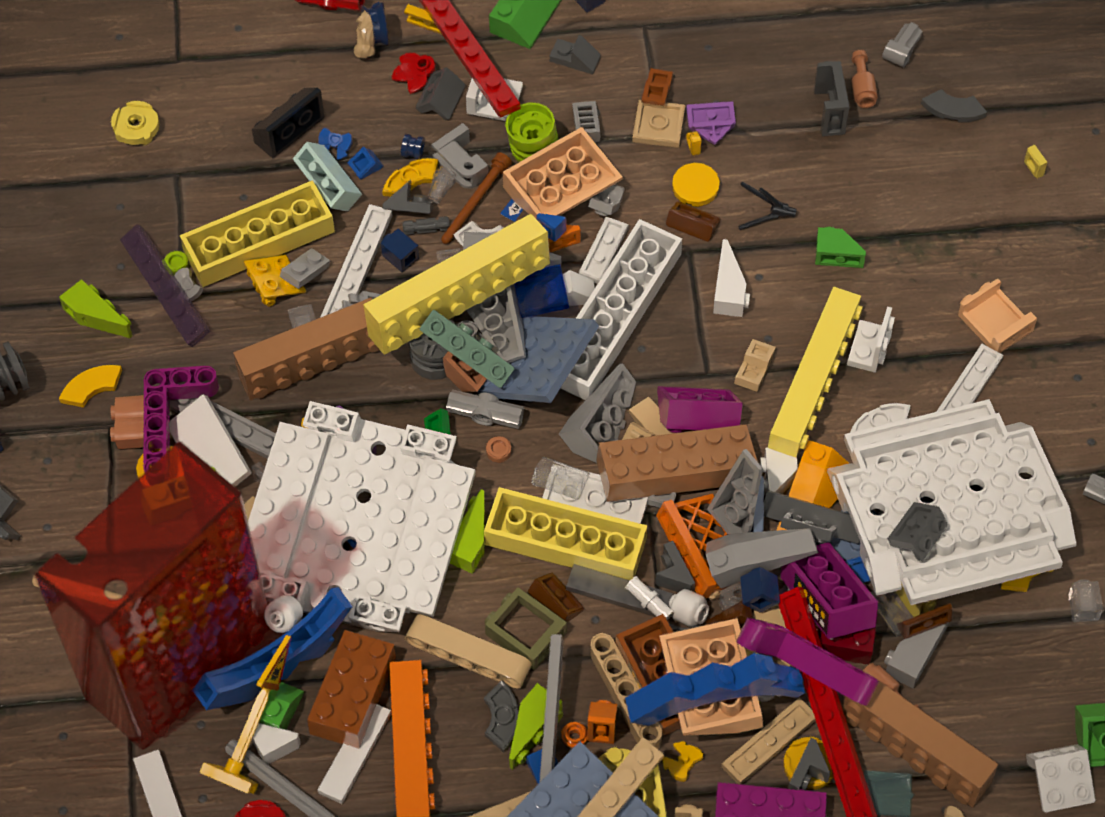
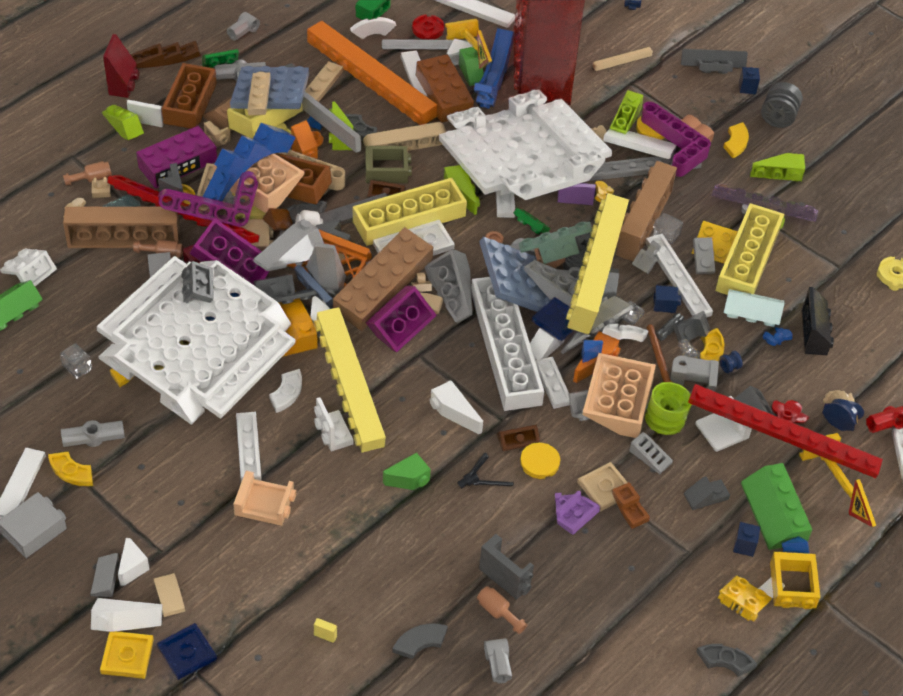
camera: 135 degrees right, 10 degrees down
(283, 613) = (509, 84): white head -> none
(364, 163) = (747, 341): blue slope -> none
(560, 478) = (443, 236): clear slope -> none
(648, 598) = (333, 208): white pin -> none
(694, 142) = (567, 484): yellow tile -> none
(754, 365) = (393, 373): tan slope -> none
(760, 589) = (269, 229): dark blue brick -> none

